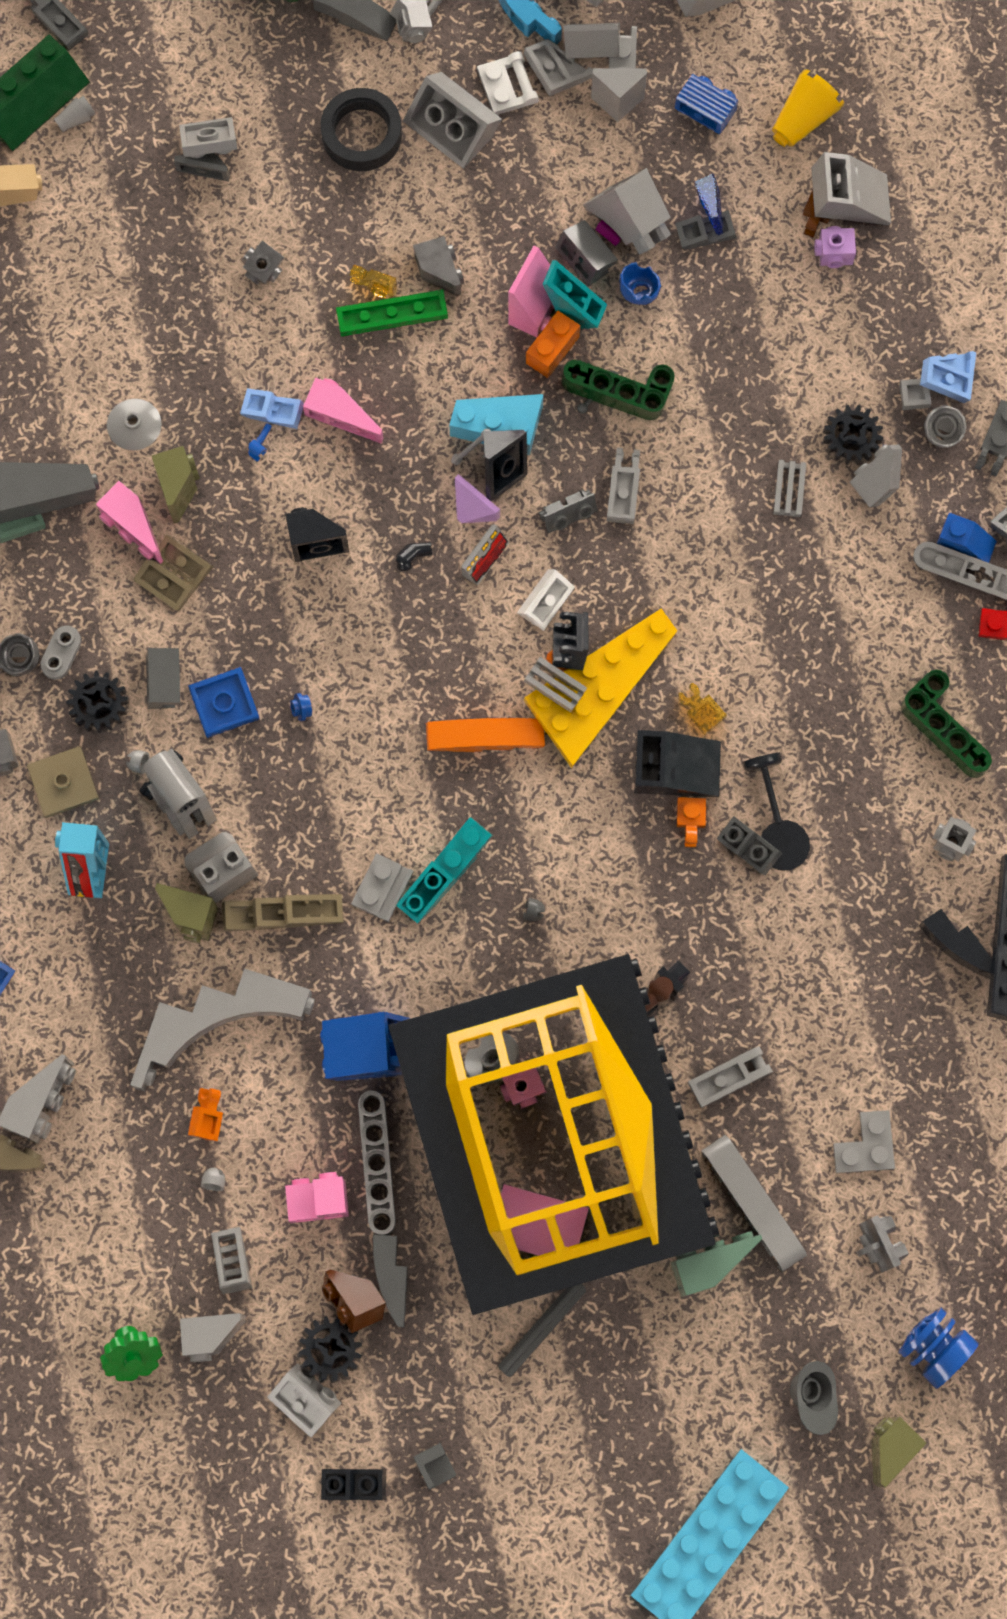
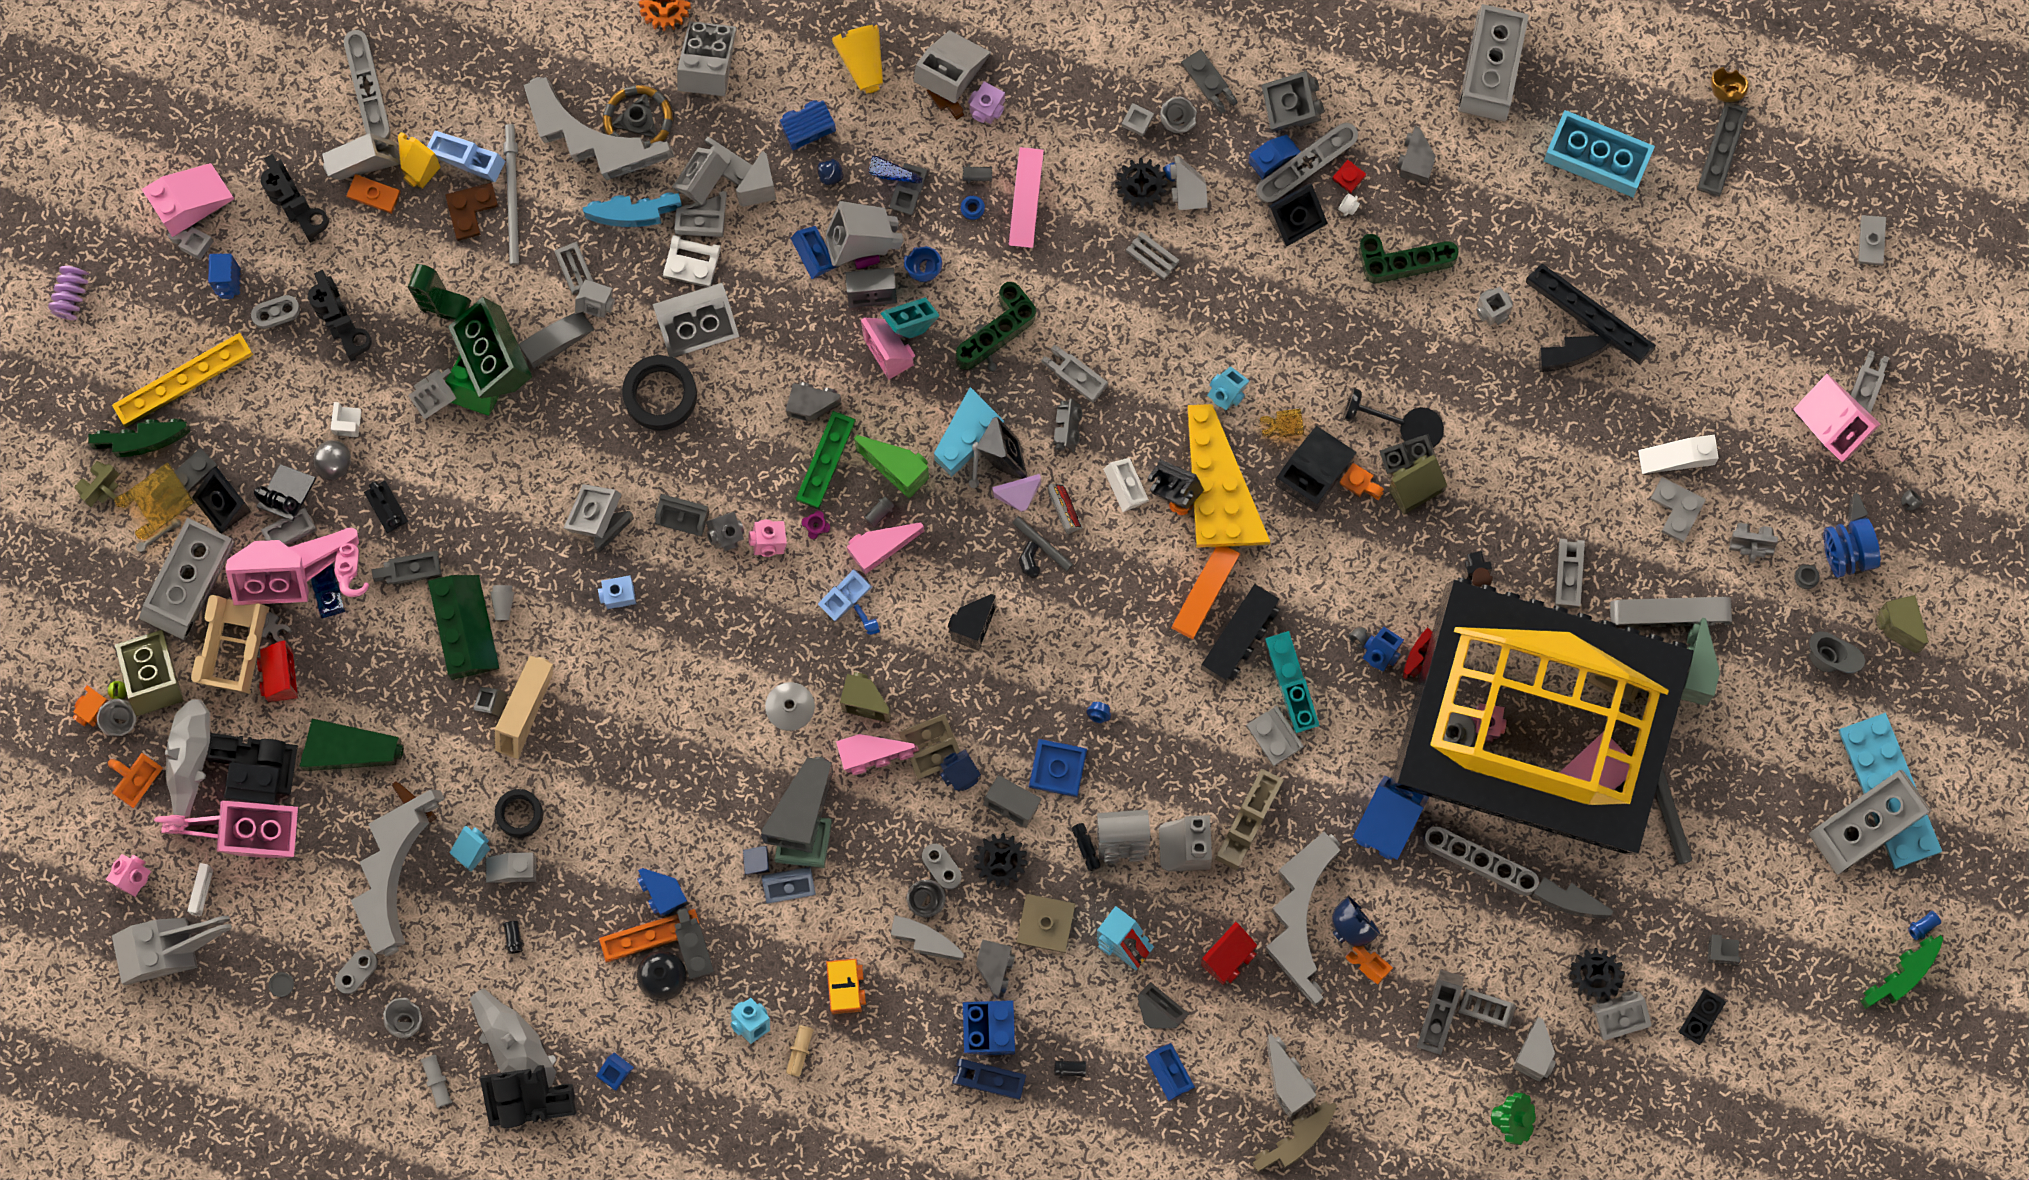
camera: 55 degrees left, 0 degrees up
(42, 939) = (1159, 1009): none -> dark grey slope
(131, 971) = (1229, 954): none -> red slope
(137, 757) = (1066, 856): light grey hinge -> none
(146, 206) = (617, 592): none -> light blue brick
(161, 611) = (959, 771): none -> dark blue brick
(189, 911) = (1210, 886): olive slope -> none
(200, 1213) = (1440, 1011): none -> flat silver slope
(213, 1179) = (1420, 986): light grey hinge -> none
(234, 1074) = (1352, 924): none -> dark blue cylinder
(255, 217) = (681, 515): none -> dark grey hinge
(280, 304) = (768, 538): none -> bright pink brick
(317, 1200) = (1485, 914): bright pink brick -> none
(322, 334) = (817, 517): none -> magenta plate
(354, 1298) = (1570, 935): reddish brown slope -> none
(372, 390) = (879, 511): none -> dark grey pin
(378, 282) = (797, 454): clear yellow plate -> none
(422, 386) = (897, 464): none -> bright green slope
(437, 557) = (1042, 543): none -> dark grey bar
(462, 793) = (1240, 634): none -> black brick
(527, 937) = (1383, 649): none -> blue brick
(541, 972) = (1415, 659): none -> red slope
(552, 344) = (930, 356): orange brick -> none
(554, 683) = (1201, 506): light grey tile -> none
(588, 182) = (812, 251): none -> blue slope
(614, 1531) = (1833, 837): none -> light grey hinge
(674, 150) = (830, 172): none -> dark blue piece
(701, 634) = (1228, 388): none -> medium azure brick
(722, 871) = (1417, 484): none -> olive slope
(730, 290) = (969, 201): none -> blue plate
(761, 280) = (977, 173): none -> dark grey pin
(768, 337) = (1026, 197): none -> bright pink slope
(881, 1320) = (1806, 576): none -> dark grey plate
(920, 596) = (1297, 215): none -> black slope
(922, 1114) = (1679, 455): none -> white slope
(950, 375) = (1140, 85): light blue wing -> none
(965, 640) = (1349, 205): none -> white plate
(983, 1331) = (1856, 509): none -> dark grey slope

